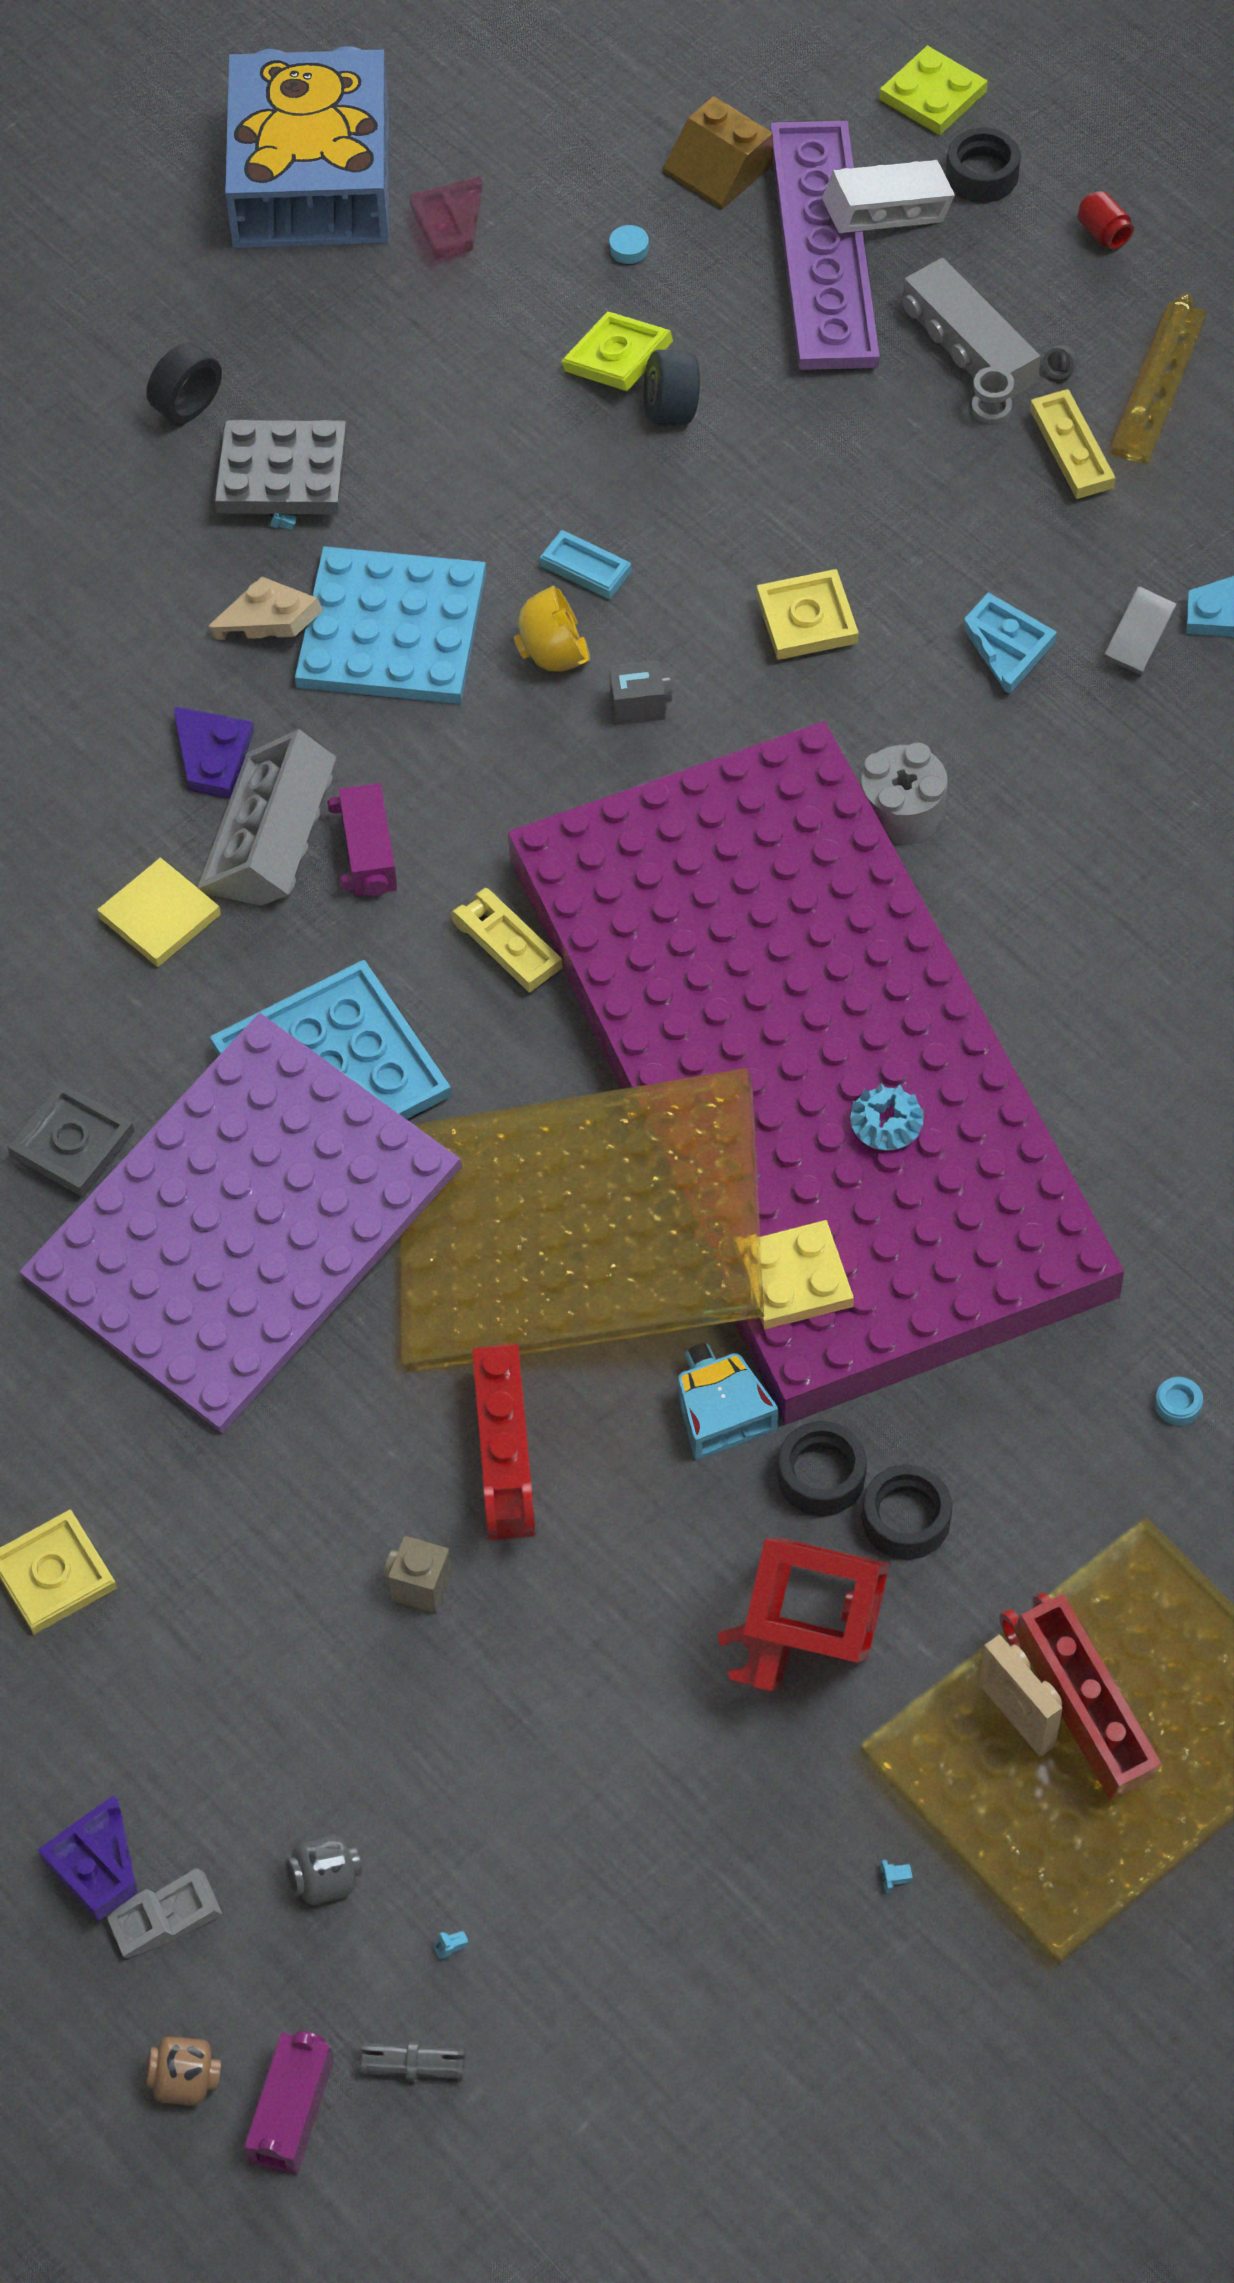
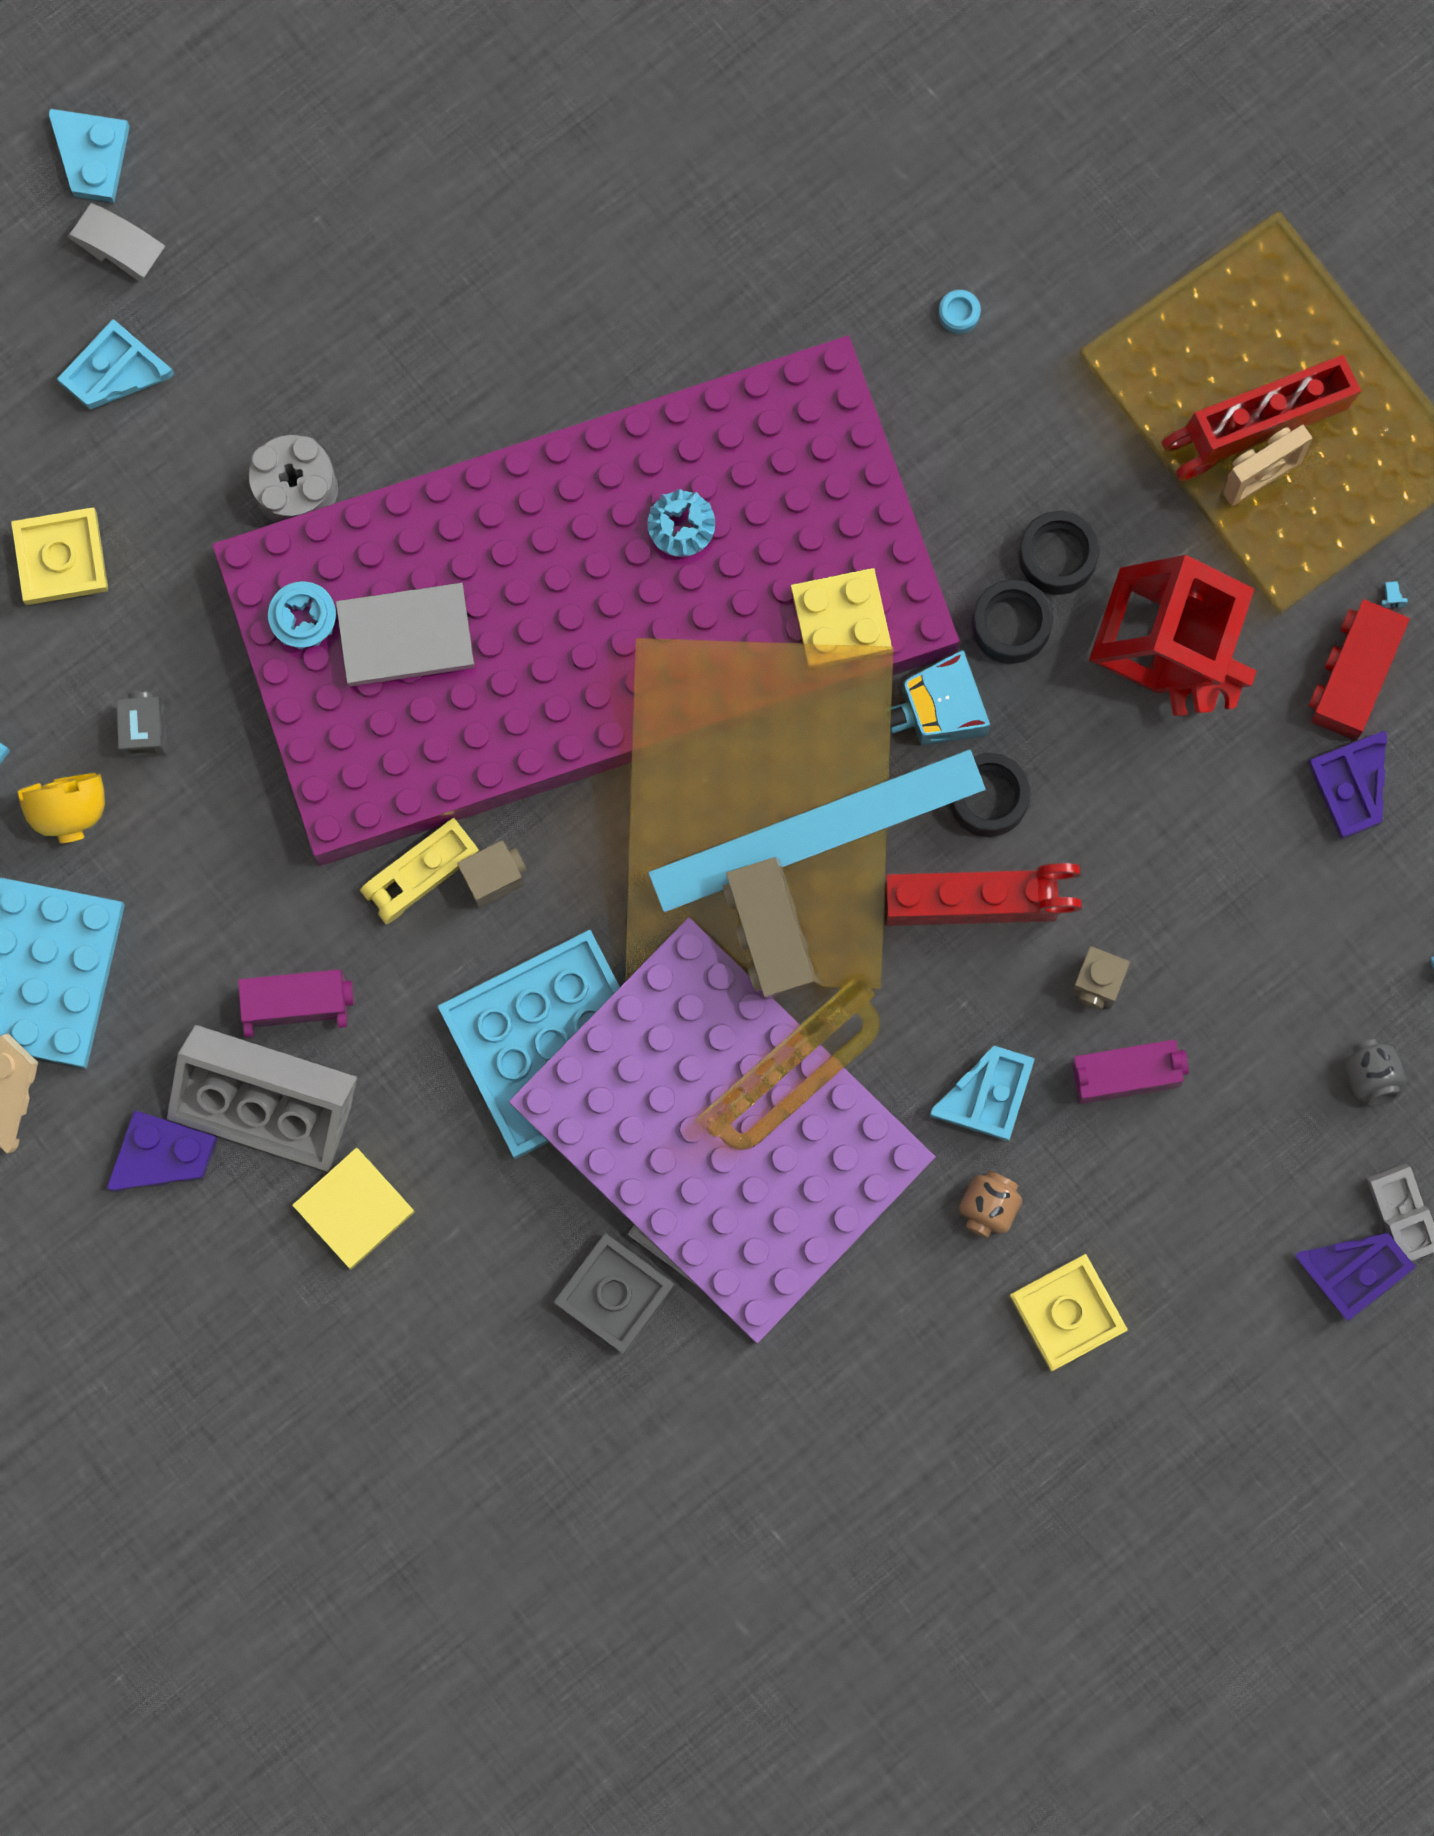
camera: 85 degrees left, 20 degrees up
(167, 1482) = (990, 1204): none -> medium nougat head
(288, 1476) = (988, 1094): none -> medium azure wing
(316, 1609) = (1129, 1071): none -> magenta brick
(375, 1310) = (720, 1115): none -> clear yellow piece
(442, 1224) = (770, 929): none -> dark tan wedge
(503, 993) = (492, 873): none -> dark tan brick
(559, 1267) = (820, 828): none -> medium azure tile
(615, 1424) = (1004, 824): none -> black tyre
(662, 1835) = (1353, 784): none -> dark purple wing
(741, 881) = (405, 634): none -> light grey tile
(745, 777) = (298, 596): none -> medium azure gear
(798, 1832) = (1357, 669): none -> red brick

